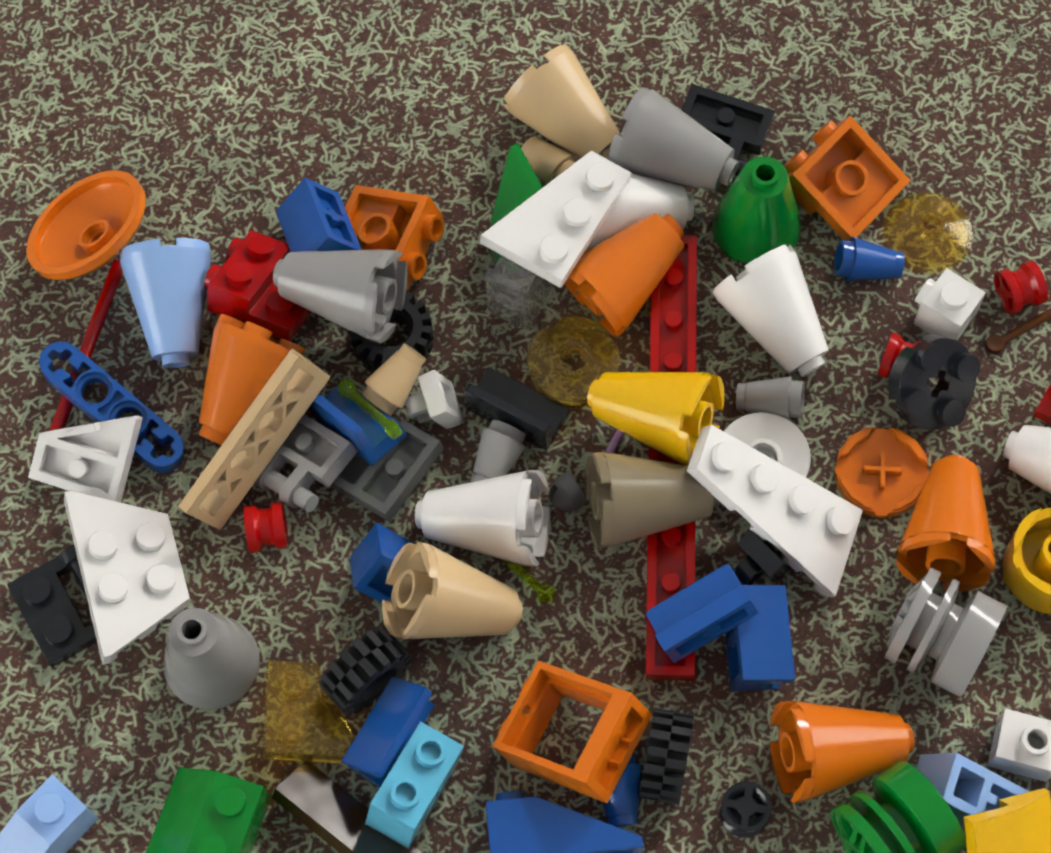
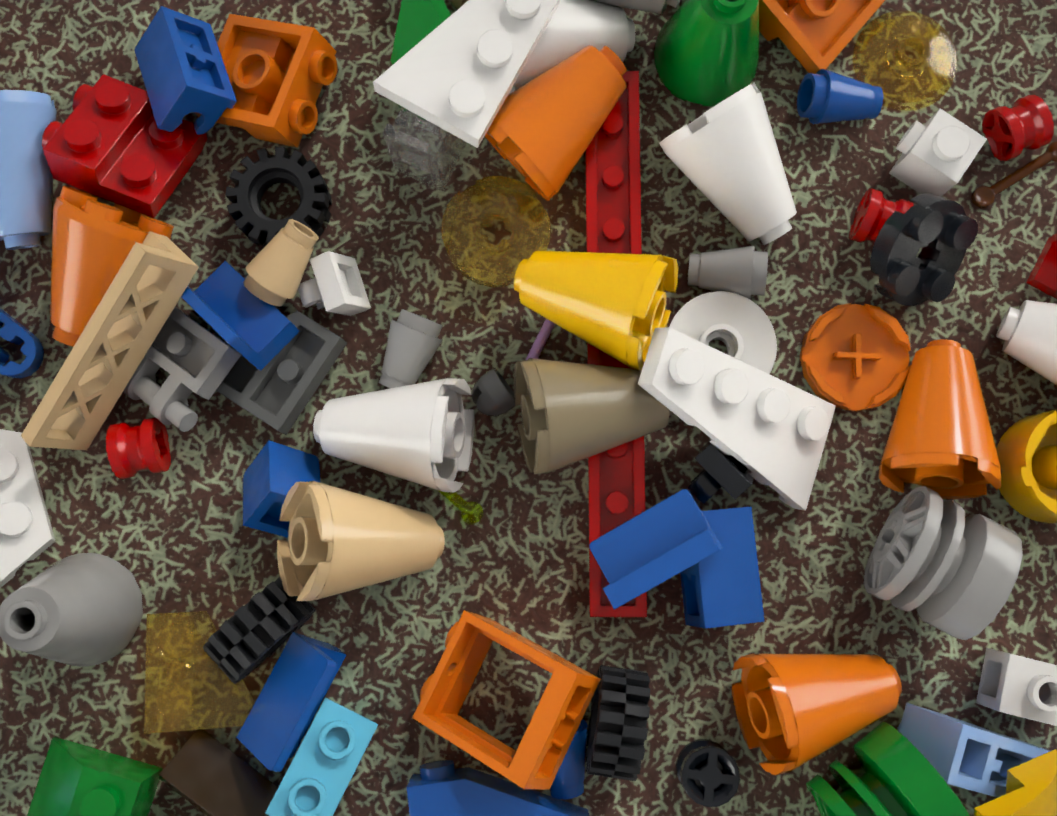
camera: 10 degrees left, 15 degrees up
(346, 287) = (215, 151): light grey cone -> none
(347, 390) = (227, 276): clear neon green hinge -> none
(517, 405) = (431, 289): black panel -> none

